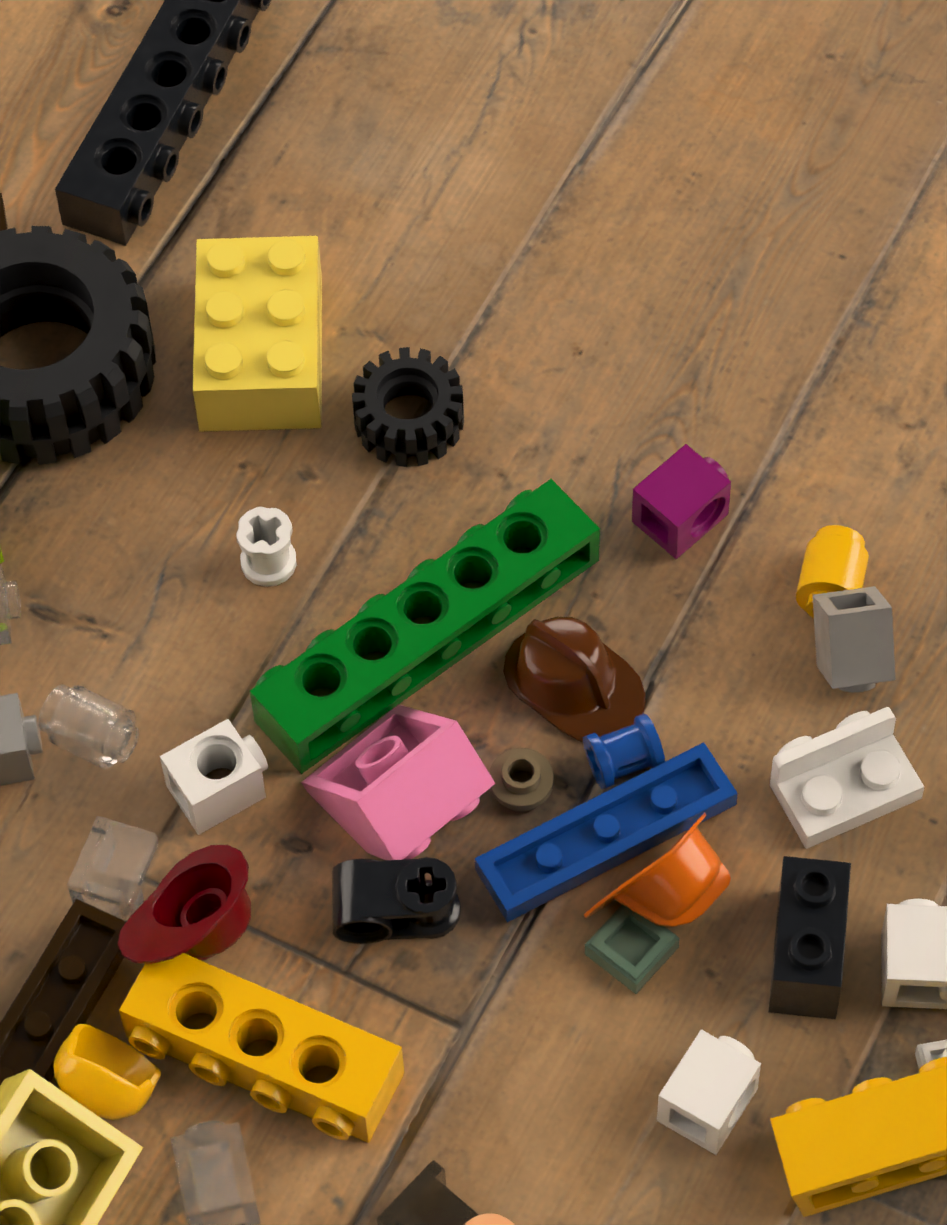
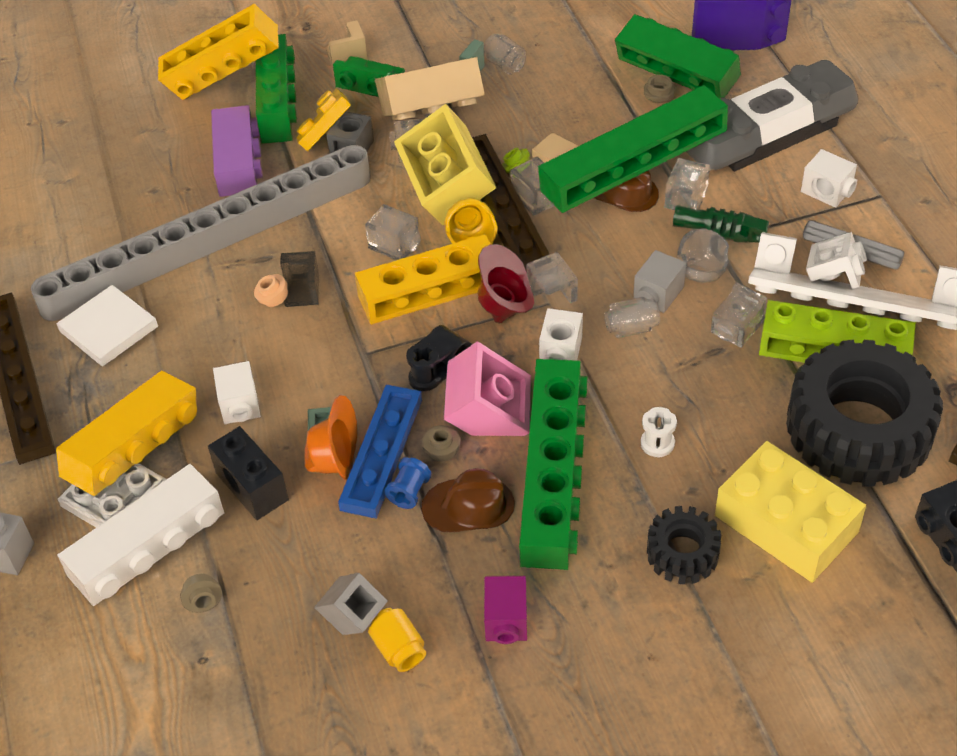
camera: 135 degrees right, 10 degrees down
(844, 777) = (299, 558): white bracket -> none

